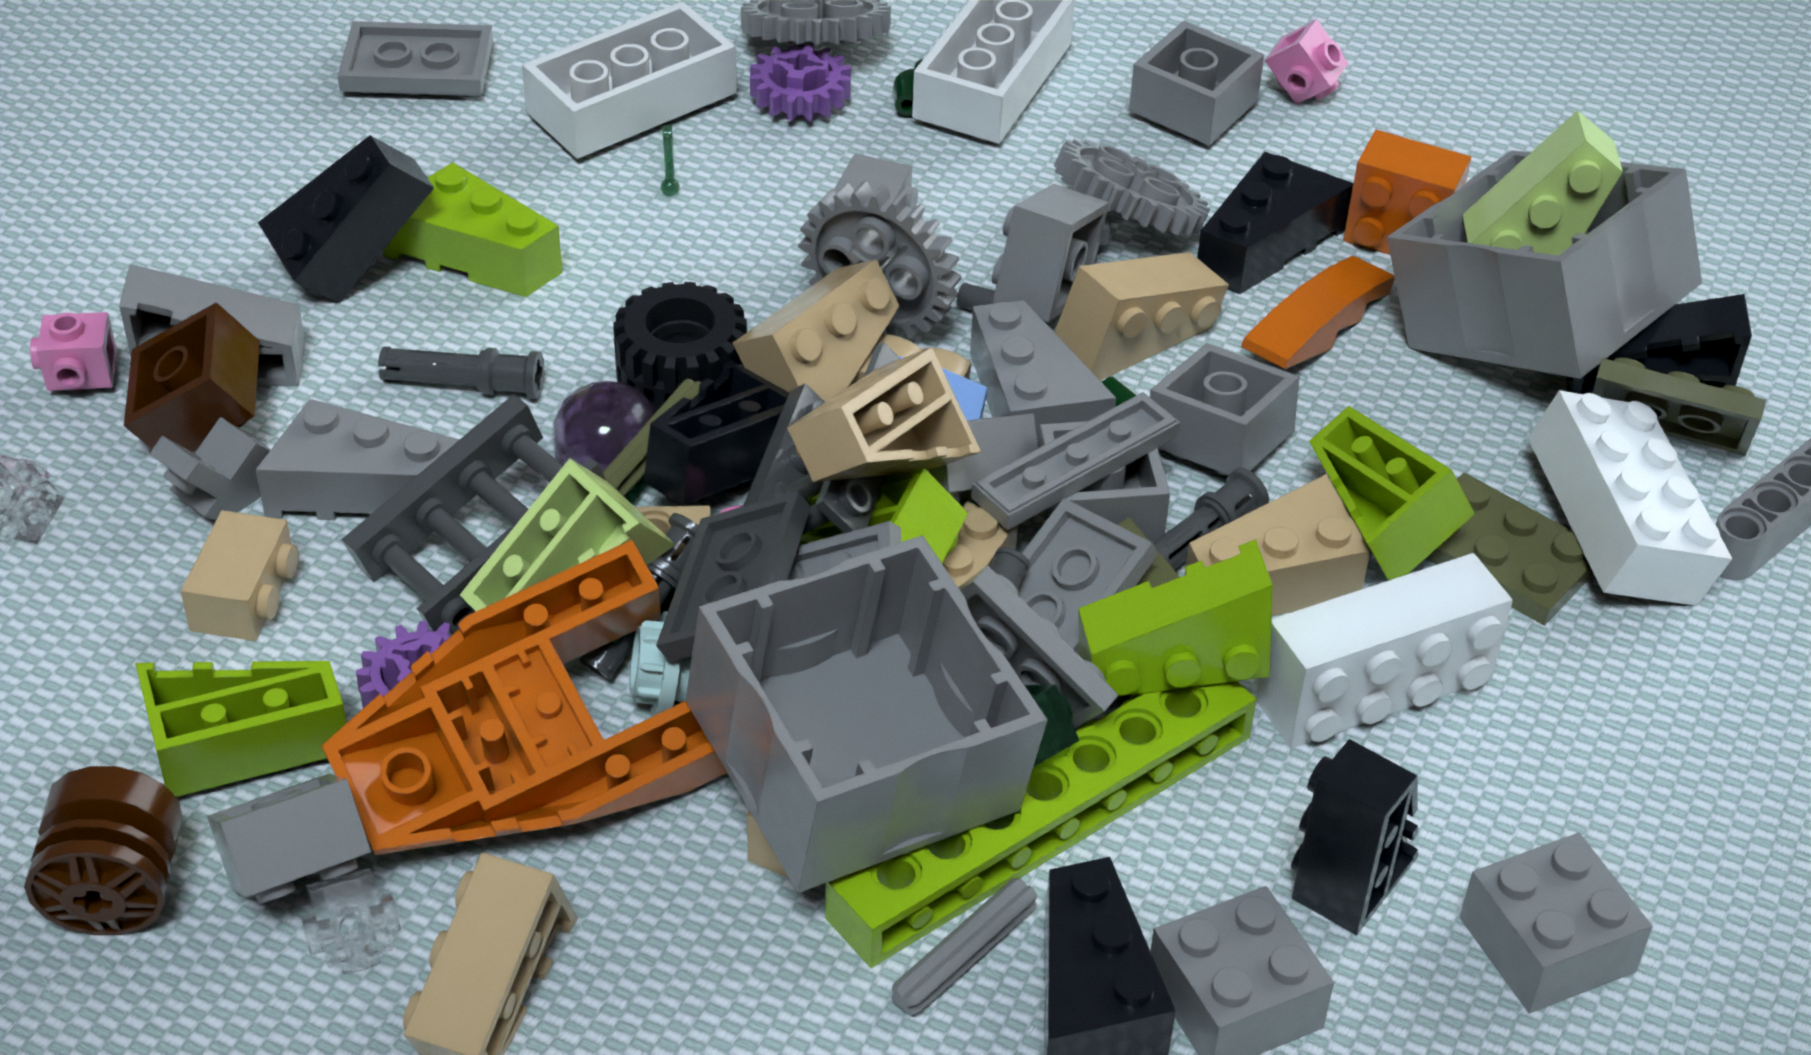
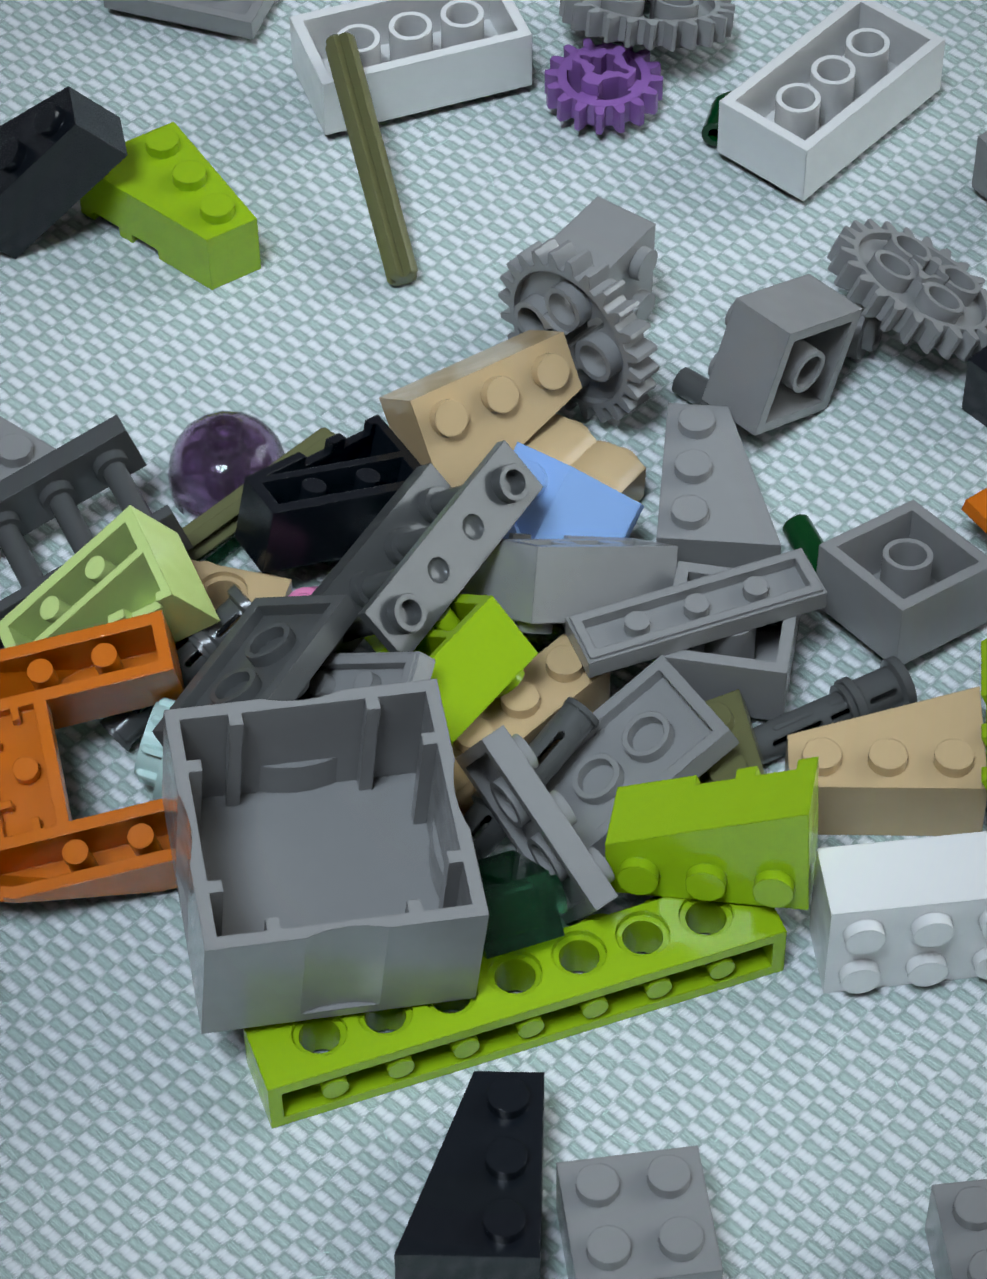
camera: 20 degrees right, 5 degrees up
(487, 371) = (130, 371): dark grey pin -> none
(636, 165) = (371, 159): none -> olive axle
(669, 185) = (414, 185): clear green hinge -> none
(675, 337) = (332, 374): black tyre -> none
(886, 424) = (457, 538): tan wedge -> none
(963, 946) = (371, 1129): light grey axle -> none
(1137, 309) = (859, 442): tan wedge -> none
(1355, 835) = (817, 1116): black wedge -> none

